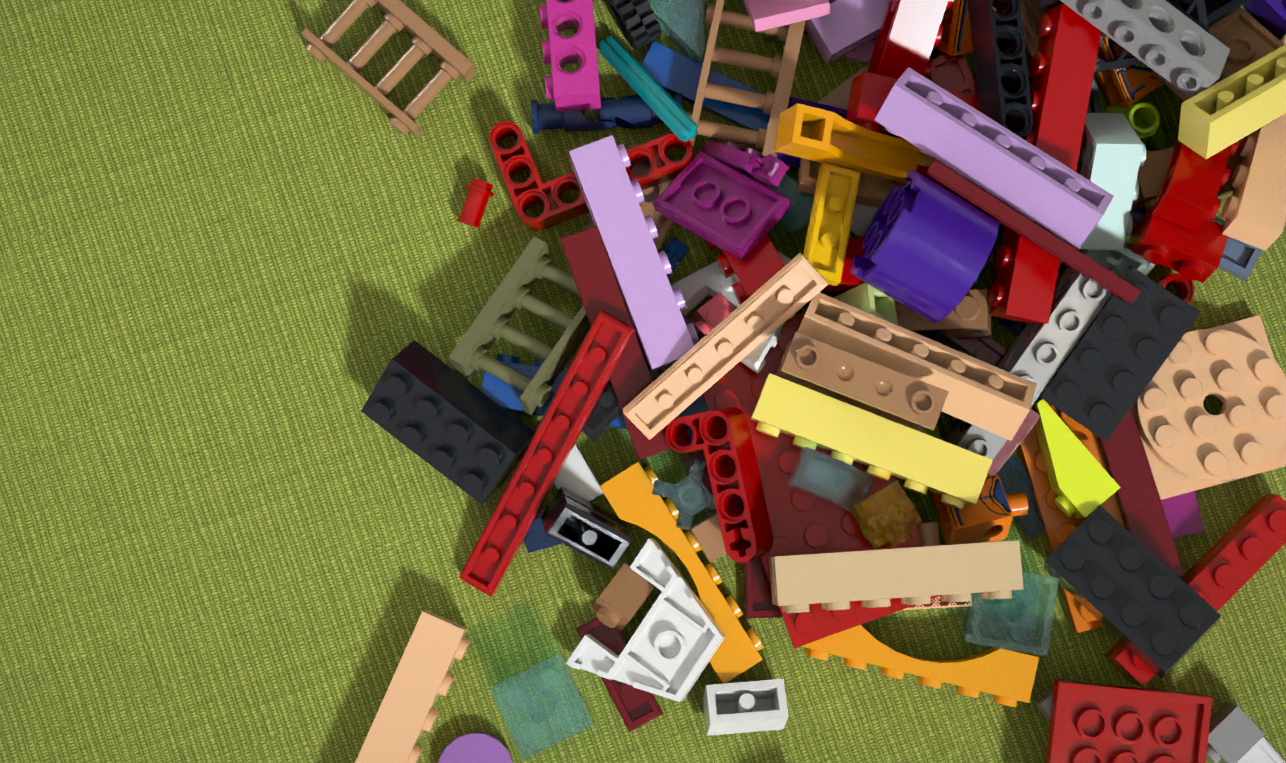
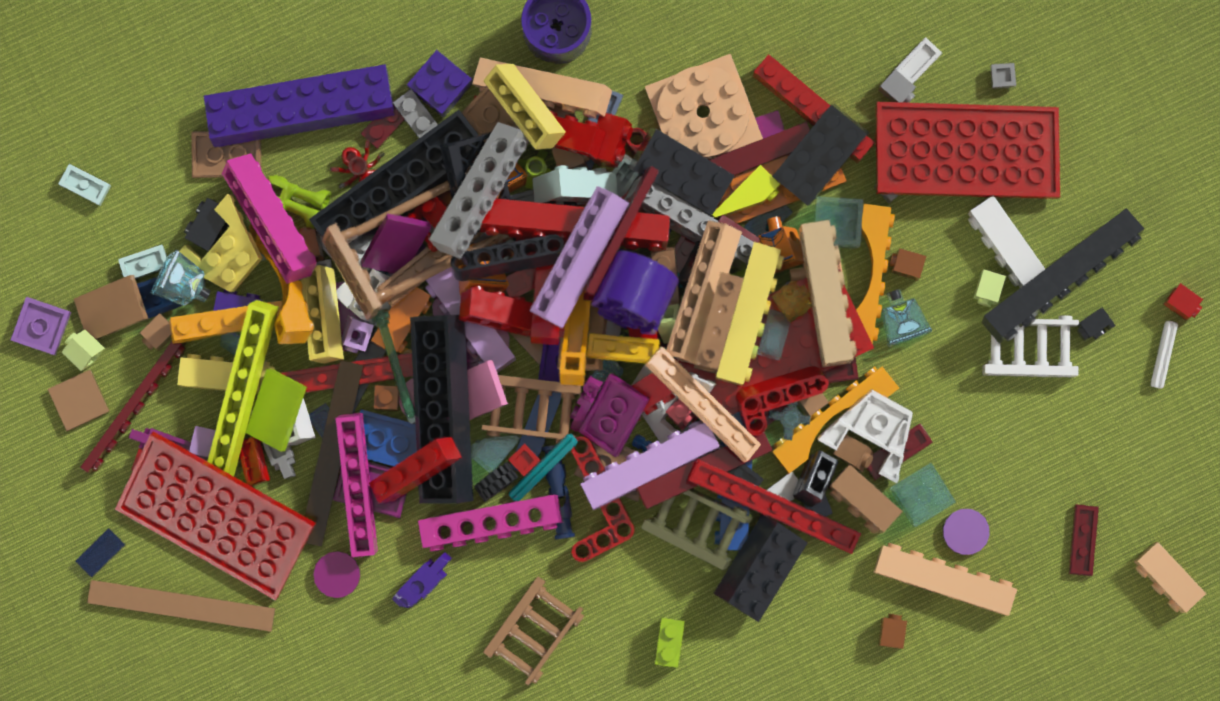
camera: 95 degrees left, 0 degrees up
(323, 631) = (892, 631): none -> dark orange brick
(345, 265) = (669, 642): none -> lime brick
(475, 202) = (621, 567): red pin -> none
(540, 605) = (864, 500): none -> medium nougat brick
(663, 60) = (524, 460): none -> red plate
(745, 707) = (911, 374): white brick -> none
(837, 704) = (903, 319): none -> clear light blue torso
(930, 720) = (907, 264): none -> dark orange brick

